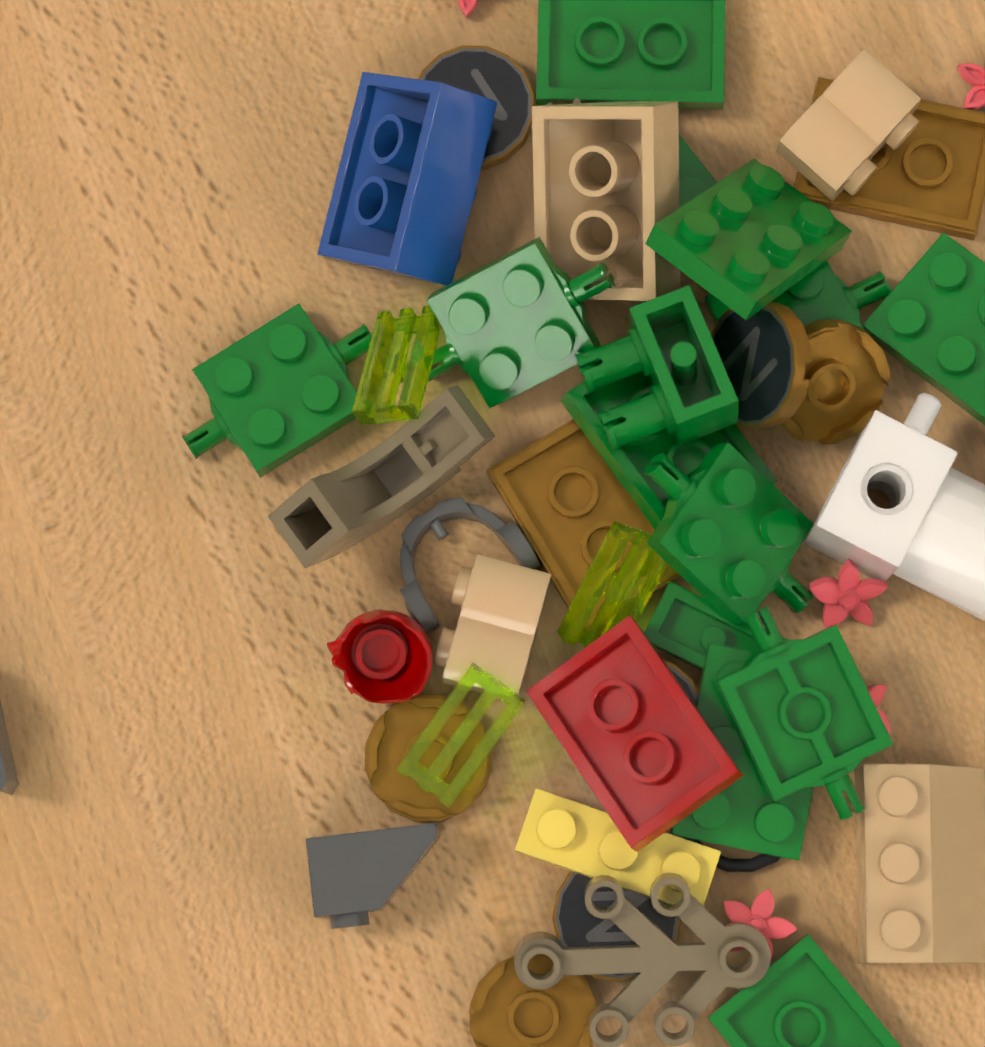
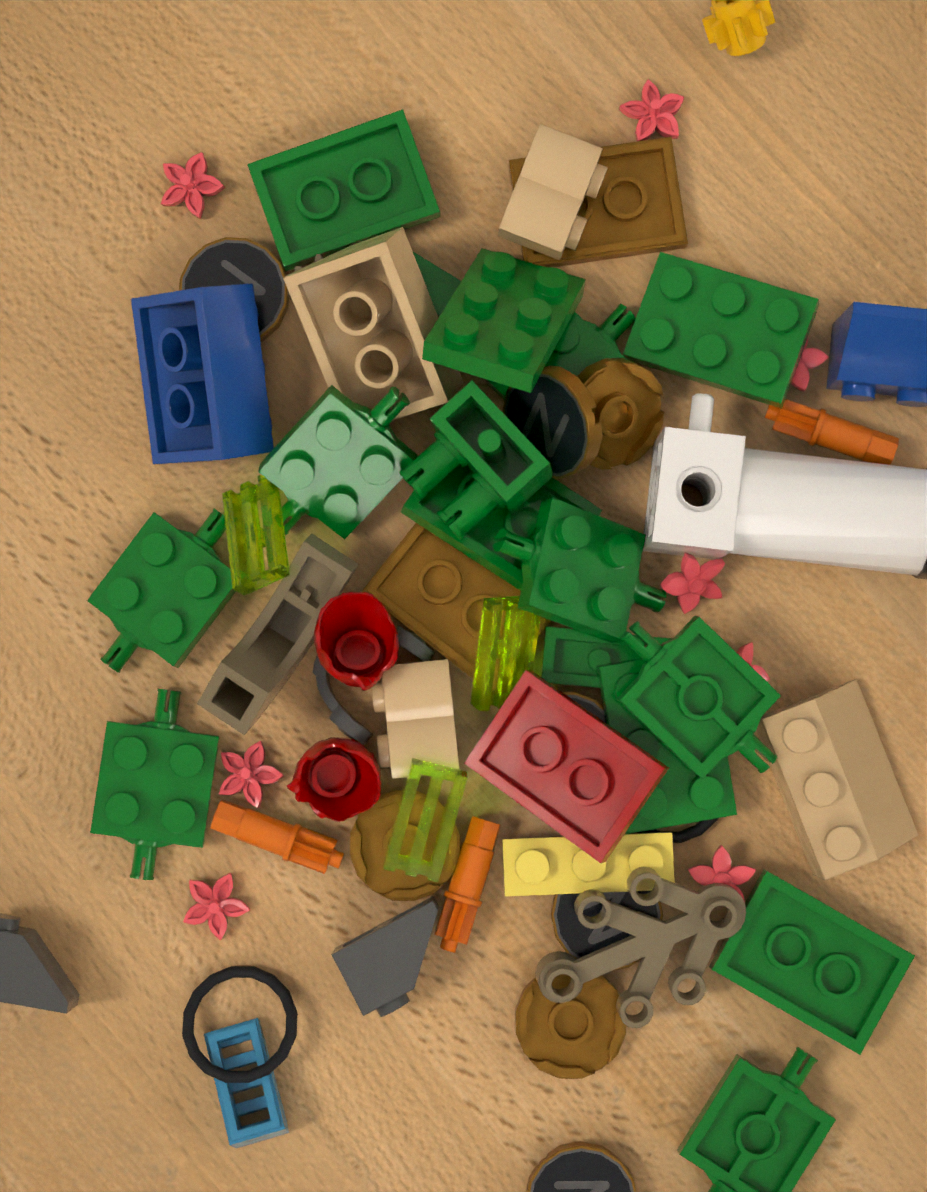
camera: 25 degrees left, 5 degrees up
(155, 1003) = (259, 1131): none -> dark azure slope
(181, 936) = (285, 1046): none -> black piece
(187, 590) = (154, 784): none -> green plate
(200, 743) = (214, 904): none -> coral plant
(291, 618) = (248, 774): none -> coral plant
(296, 696) = (277, 836): none -> orange piece
(462, 513) = (356, 639): none -> red hair
(479, 824) = (467, 884): none -> orange piece

